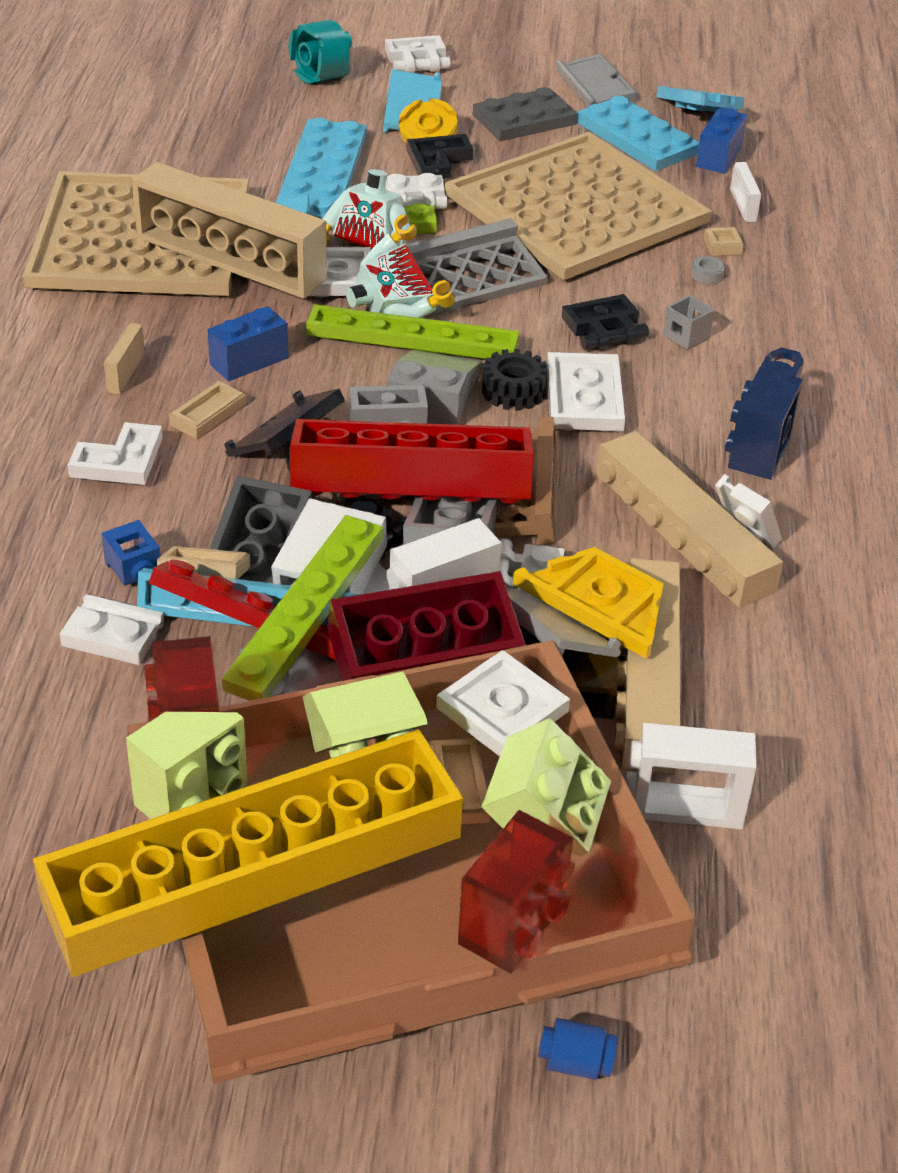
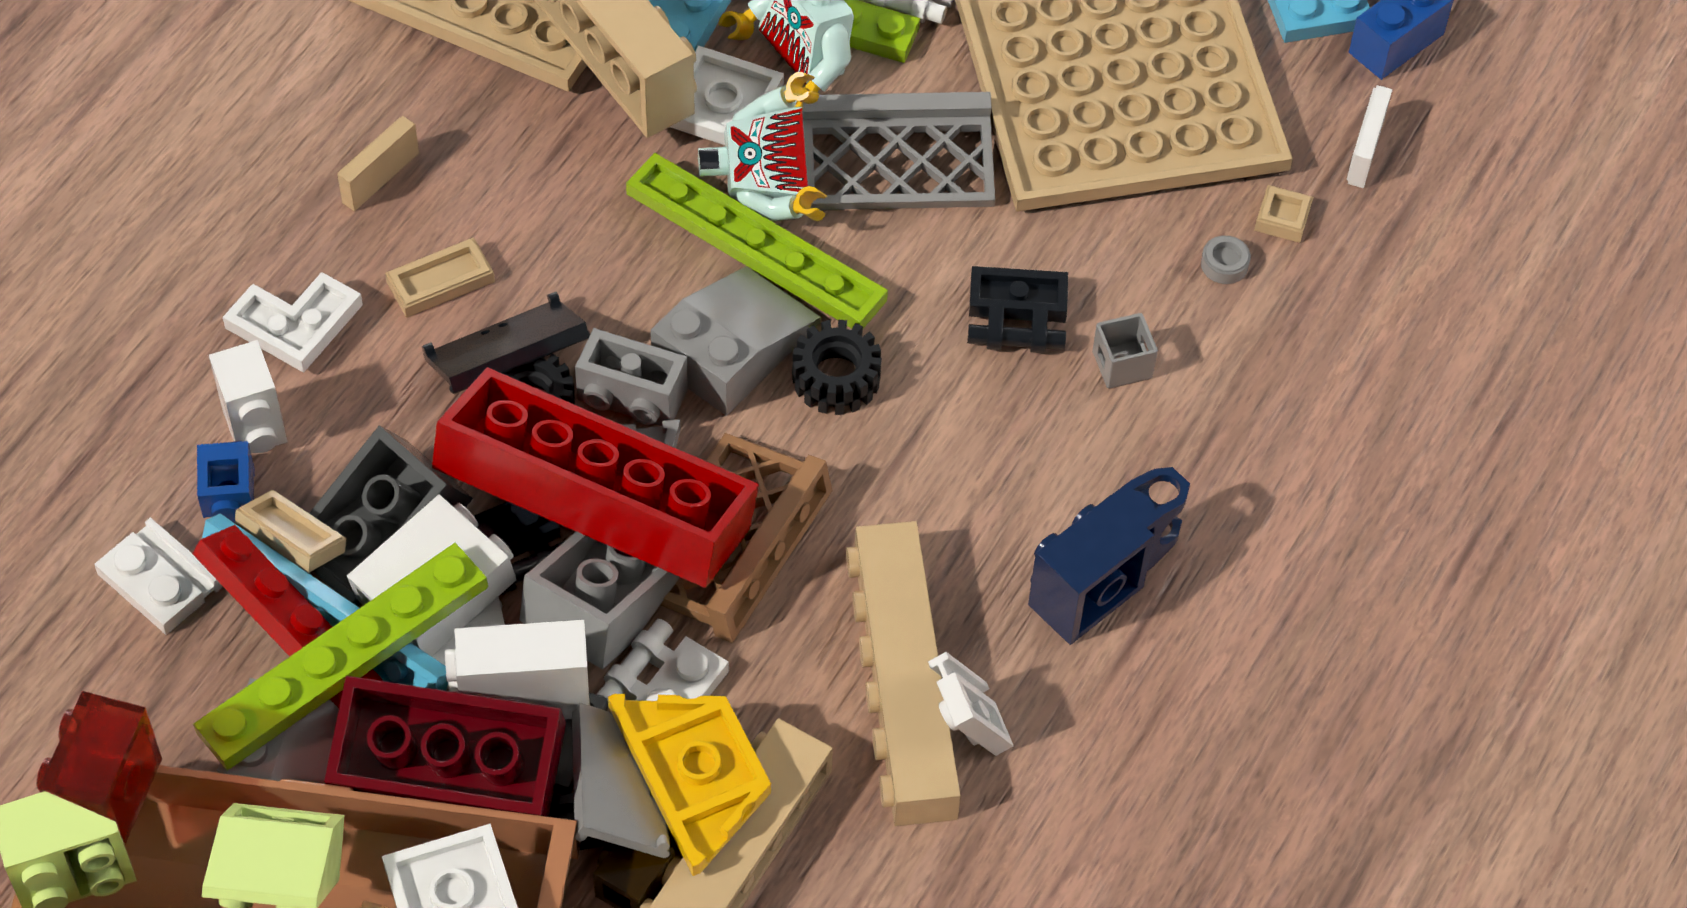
camera: 25 degrees right, 15 degrees up
(122, 491) = (248, 396): none -> white brick
(248, 343) = (536, 192): blue brick -> none
(585, 391) = (913, 419): white plate -> none

